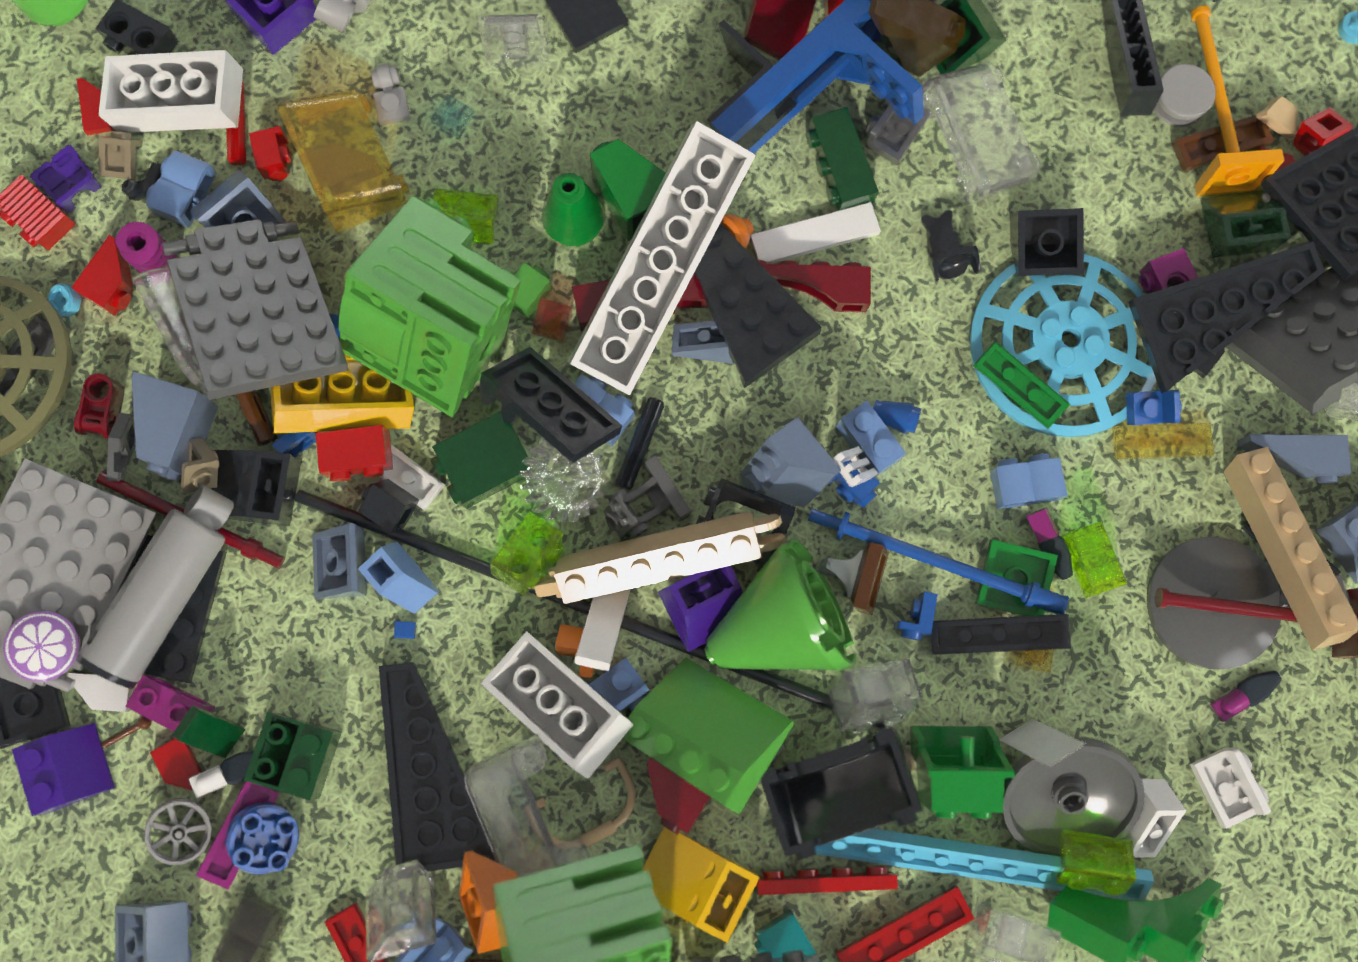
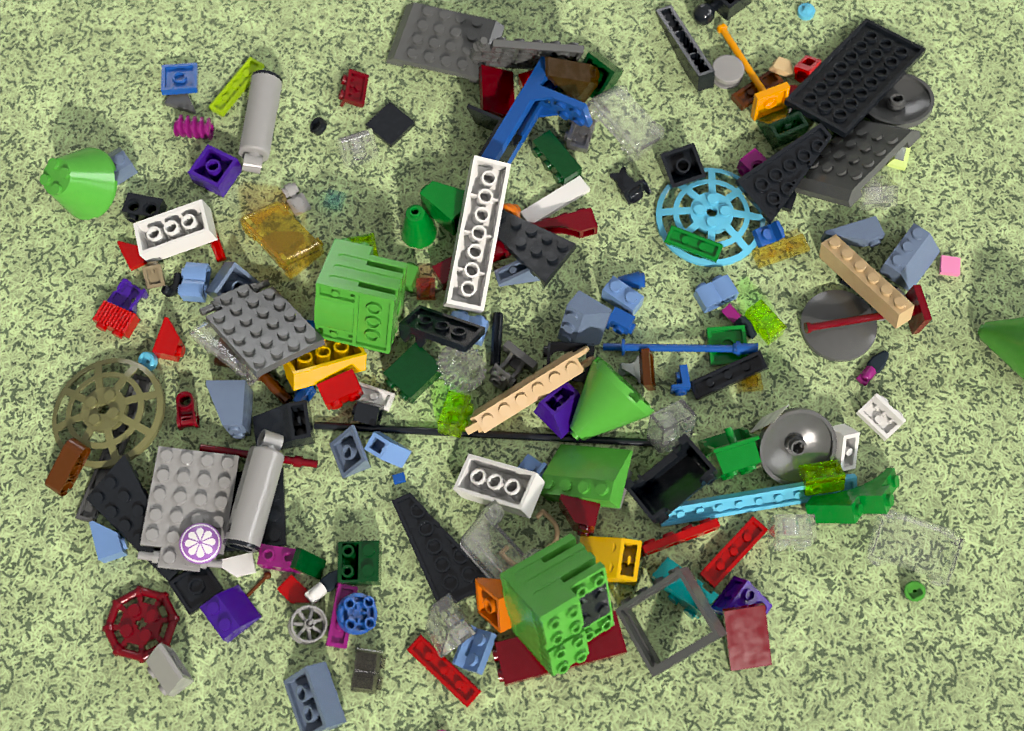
camera: 10 degrees left, 10 degrees down
(120, 446) = (207, 427): dark grey tile -> none
(142, 246) = (187, 316): magenta piece -> none
(201, 468) = (257, 421): dark tan bracket -> none
(271, 153) = (240, 248): red brick -> none
(568, 643) = (500, 453): orange panel -> none
(602, 630) = (510, 438): white tile -> none
(856, 464) = (619, 310): white tile -> none

